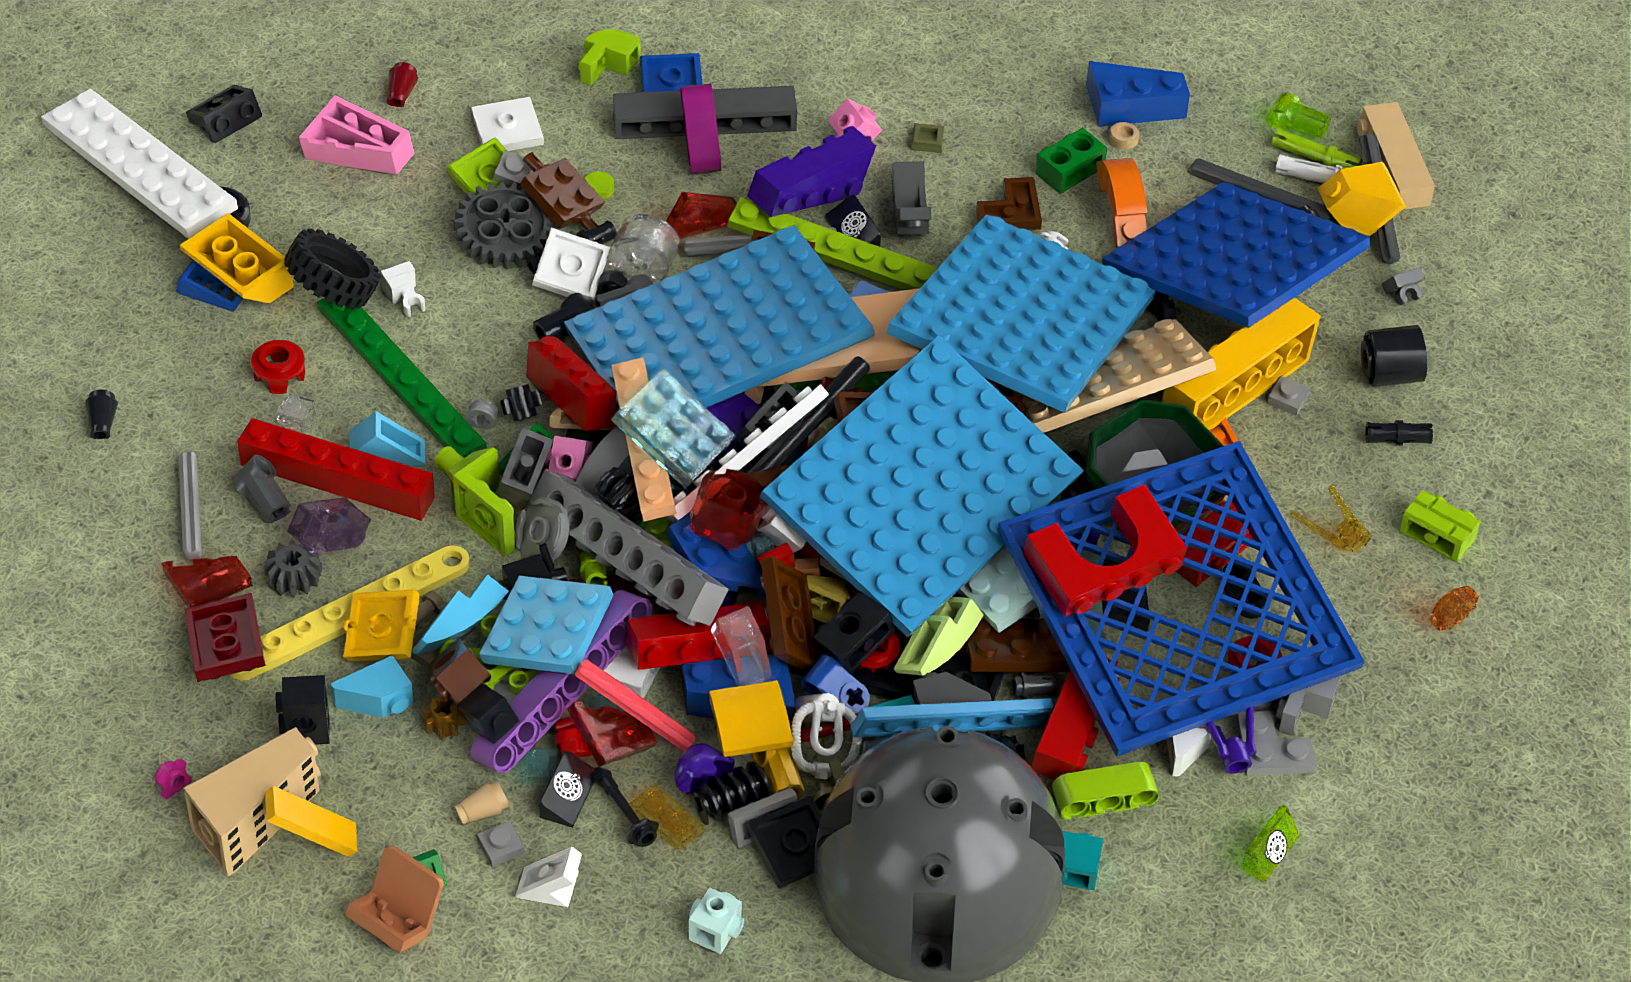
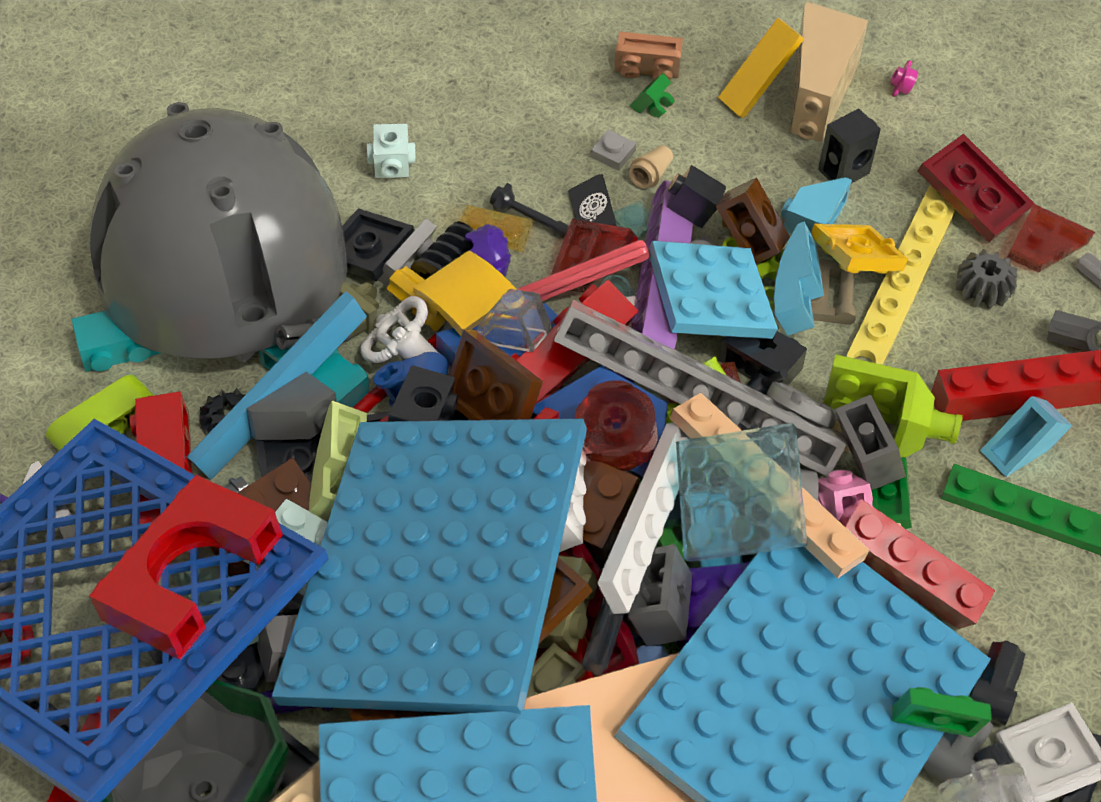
camera: 150 degrees right, 5 degrees up
(329, 525) = (998, 315): clear purple brick -> none
(482, 407) = (975, 519): light grey bush -> none
(521, 402) = (951, 542): black gear -> none
(551, 878) = (547, 131): white slope -> none
(643, 277) = (941, 712): none -> green plate

